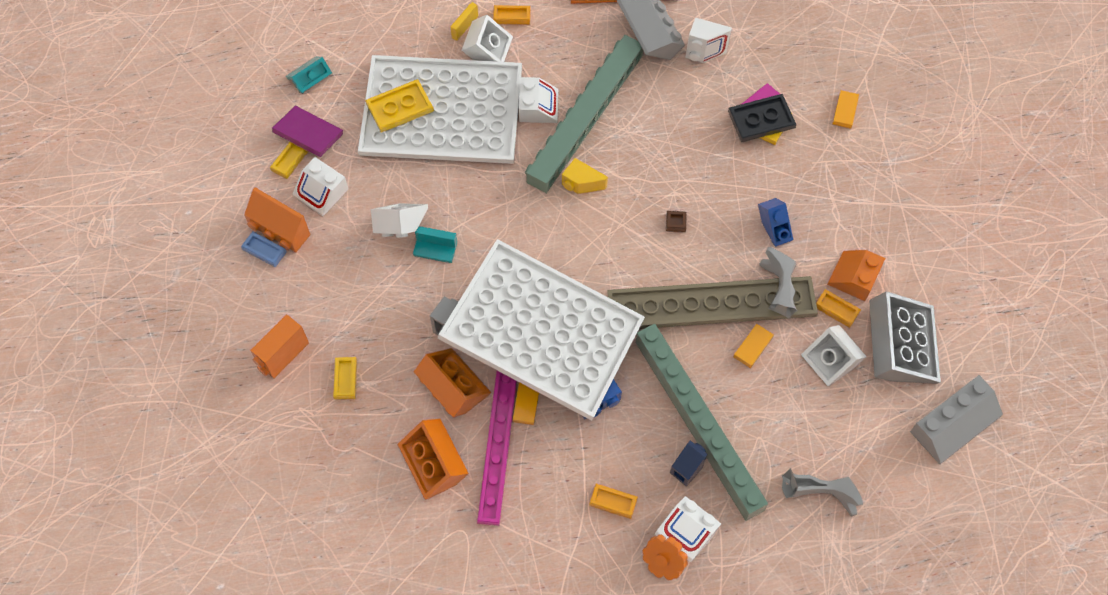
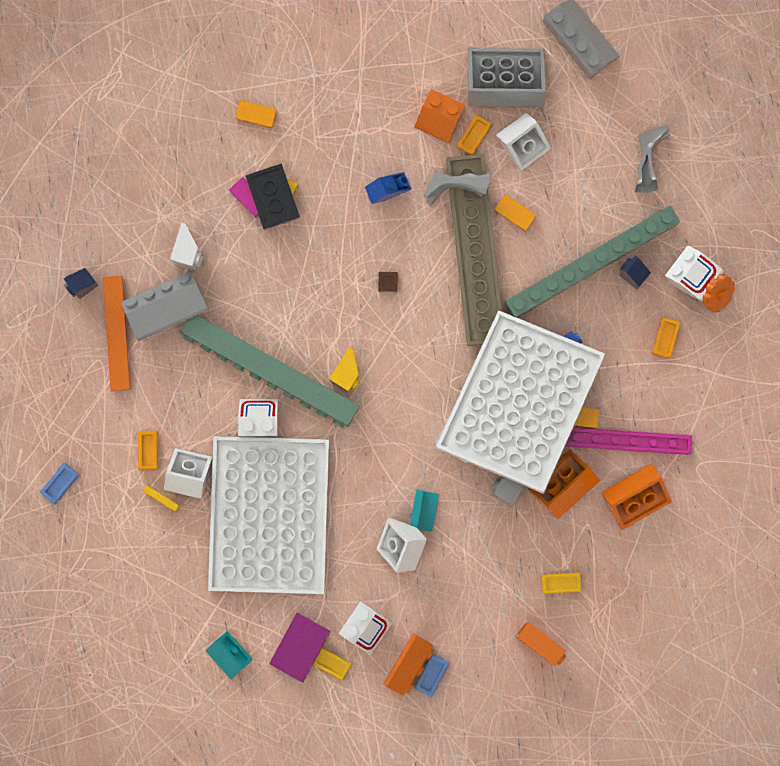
camera: 90 degrees left, 20 degrees up
(399, 105) = (270, 556): yellow tile -> none

